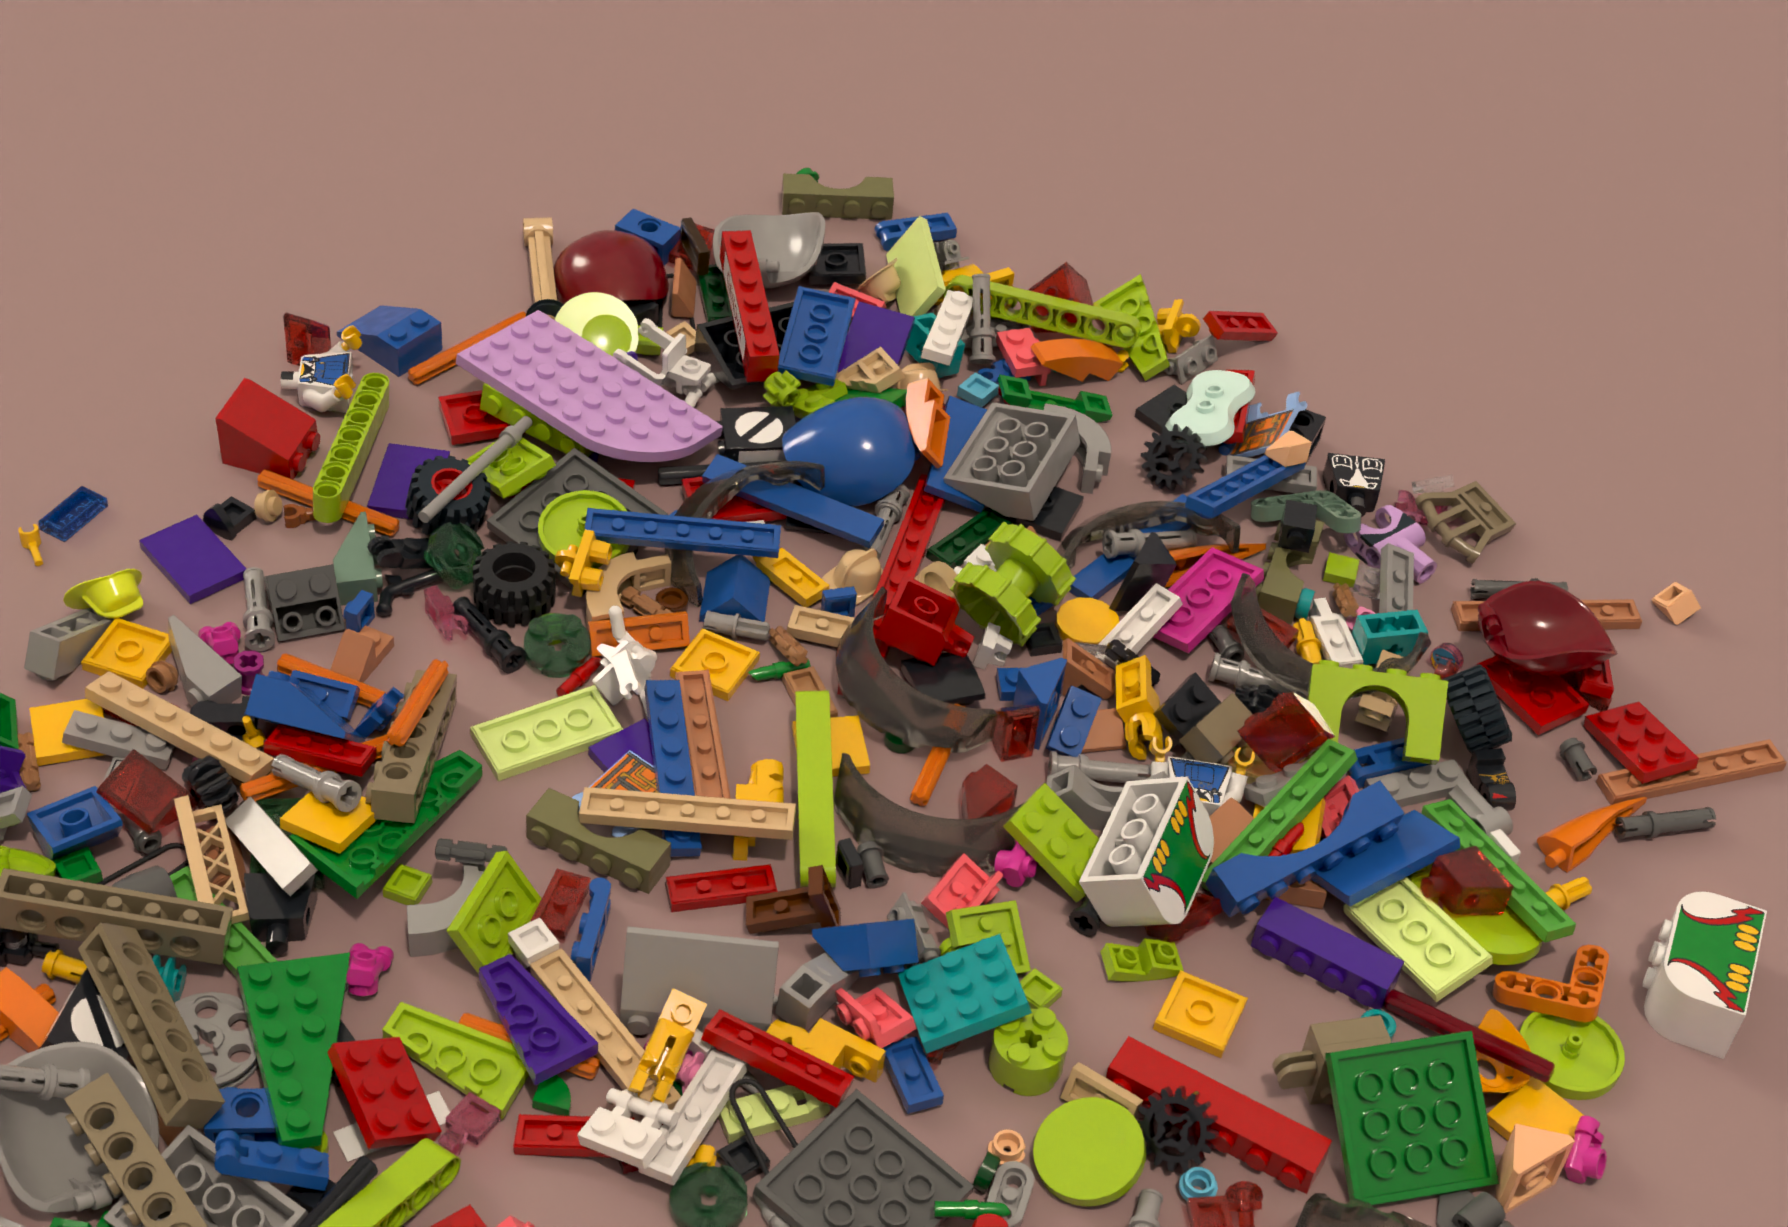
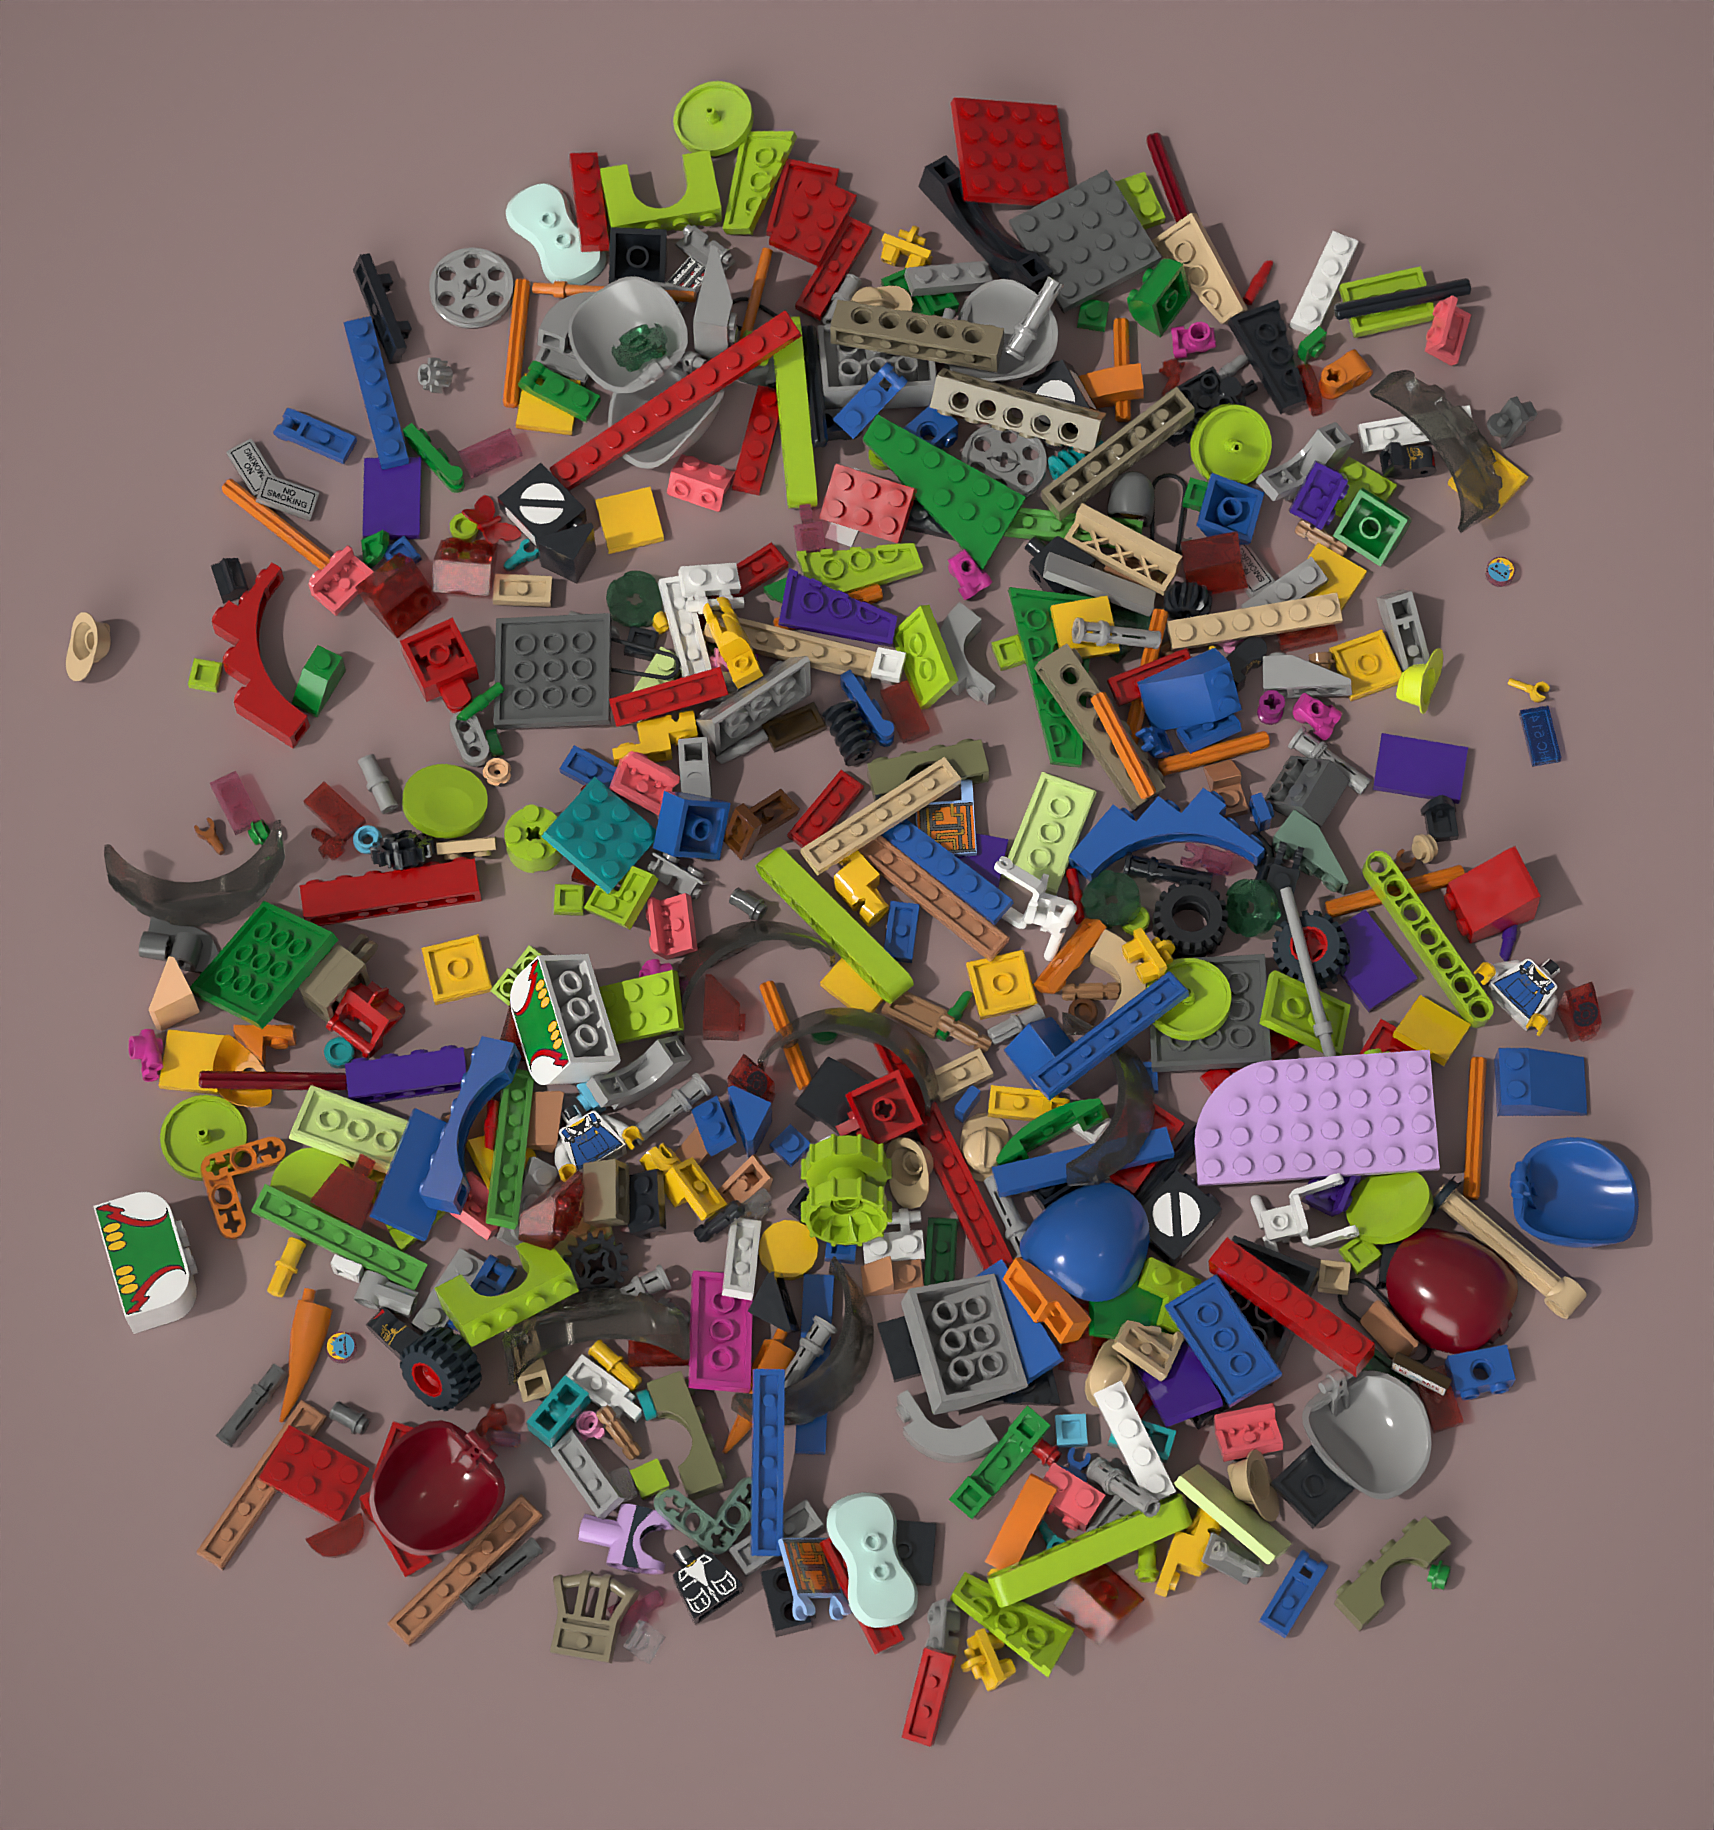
camera: 145 degrees right, 25 degrees up
(424, 405) = (1432, 1029): none -> yellow tile
(466, 851) = (979, 678): dark grey axle -> none
(467, 252) = (1574, 1194): none -> blue piece
(490, 674) = (1162, 823): none -> blue arch
(635, 906) = (848, 732): none -> black piece
(765, 743) = (901, 930): none -> blue plate
(781, 389) = (1194, 1263): lime gear -> none
(801, 545) = (1051, 1124): none -> green slope
(849, 863) = (761, 888): black tile -> none
(1186, 457) = (856, 1472): black gear -> none
(1289, 449) = (764, 1531): light nougat slope -> none
(1297, 526) = (697, 1450): black brick -> none
(1319, 1003) = (374, 1008): none -> red piece
(1548, 812) = (341, 1347): none -> tile
(1648, 695) = (338, 1539): none -> clear red tile
(1676, 603) = (373, 1672): light nougat slope -> none

